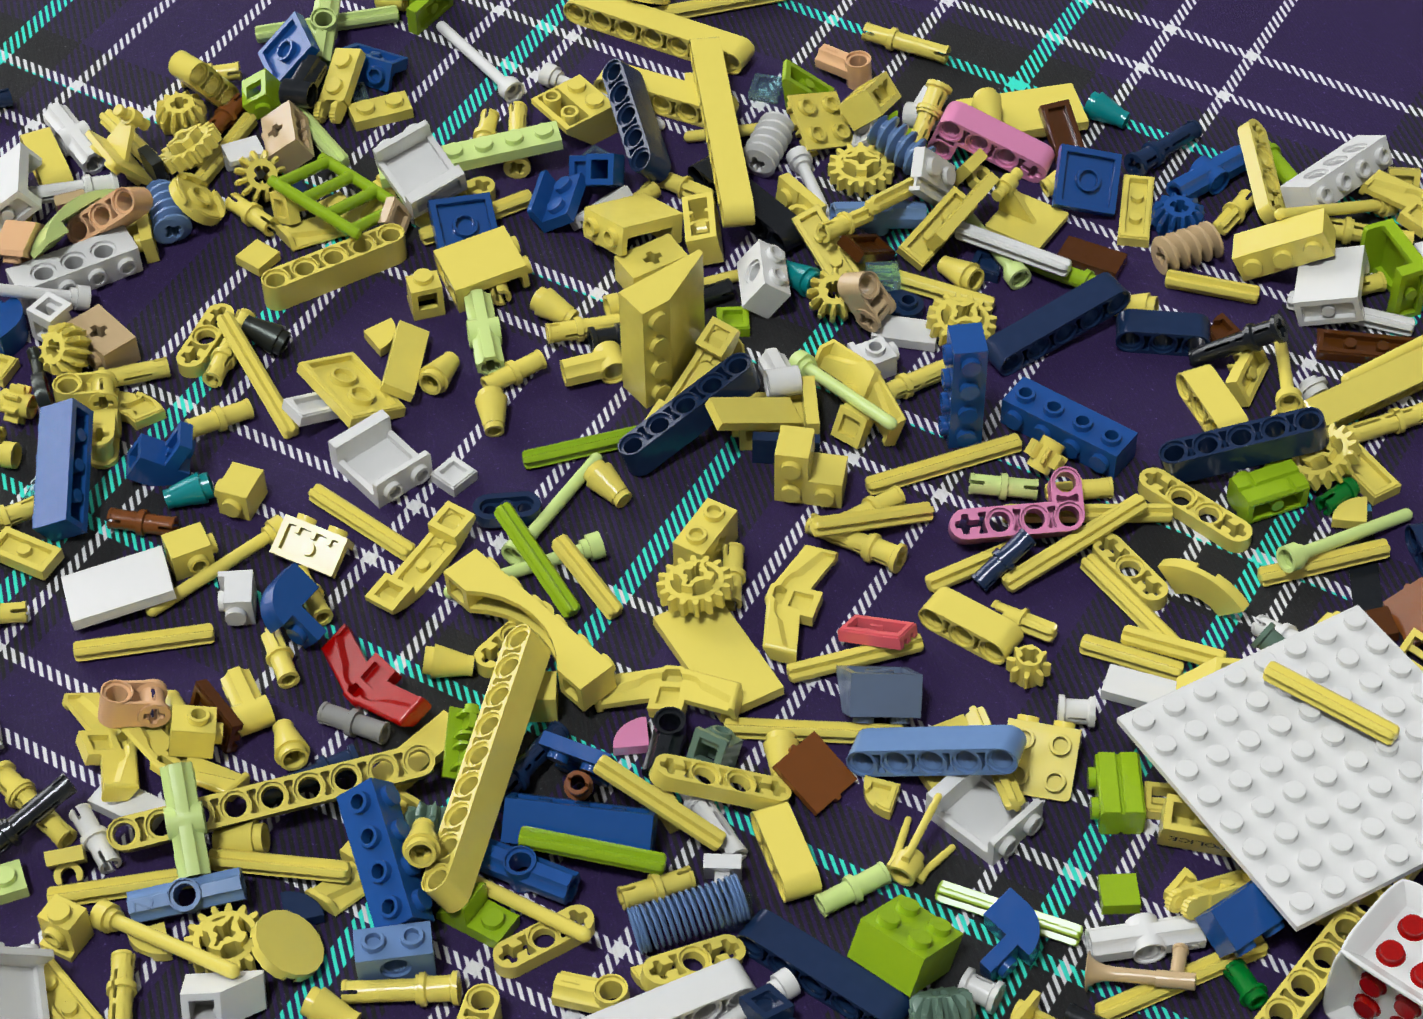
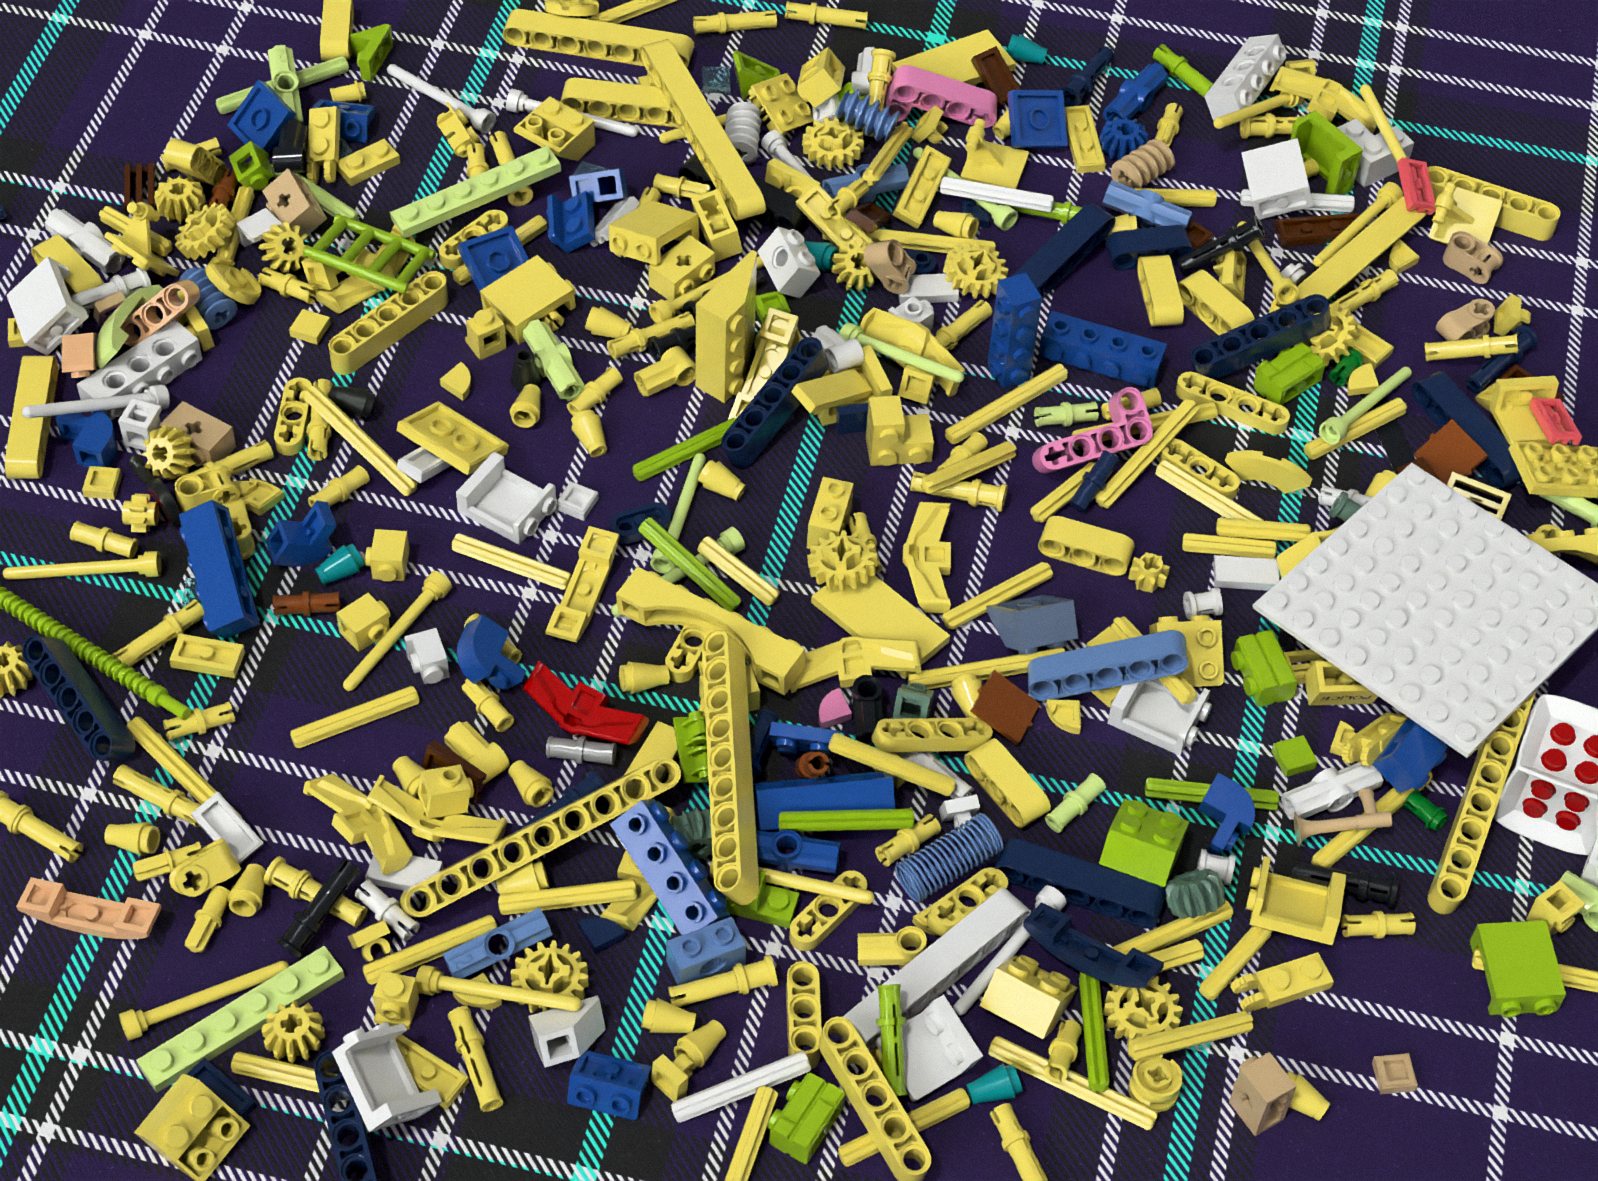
camera: 20 degrees left, 5 degrees up
(118, 588) = (311, 670): white tile -> none
(130, 703) = (380, 778): light nougat piece -> none
(150, 86) = (139, 172): none -> reddish brown tile
(152, 163) = (174, 254): pearl dark grey tile -> none
(185, 820) = (478, 876): yellowish green piece -> none
(287, 945) = (607, 968): light yellow tile -> none
(311, 545) = (476, 593): bracket -> none
(388, 41) = (349, 92): none -> light yellow pin
(395, 212) = (427, 260): tan tile -> none
(404, 361) = (491, 401): light yellow tile -> none
(418, 168) = (438, 215): white panel -> none
(421, 844) = (705, 850): light yellow cone -> none
(449, 336) = (524, 370): none -> pearl dark grey cone
(480, 93) = (454, 123): none -> light yellow hinge
(636, 121) = (620, 132): dark blue beam -> none
(801, 34) = (731, 22): none -> light yellow pin
(852, 66) = (789, 46): light nougat piece -> none
(877, 632) = (1011, 568): coral tile -> none
(887, 273) = (894, 232): clear light blue tile -> none
(907, 864) = (1114, 769): light yellow plant -> none
(931, 175) = (906, 138): white plate -> none
(961, 211) = (943, 168): light yellow tile -> none
(988, 101) = (927, 60): light yellow cone -> none
(1029, 623) = (1139, 534): light yellow axle -> none
(1045, 454) = (1093, 378): light yellow gear -> none
(1093, 256) = (1064, 188): reddish brown tile -> none
(1157, 379) = (1160, 290): none -> light yellow beam
(1173, 289) = (1146, 205): none -> medium blue piece
(1261, 169) = (1181, 85): light yellow beam -> none
(1284, 244) = (1227, 149): light yellow brick -> none
(1331, 703) = (1427, 554): light yellow axle -> none

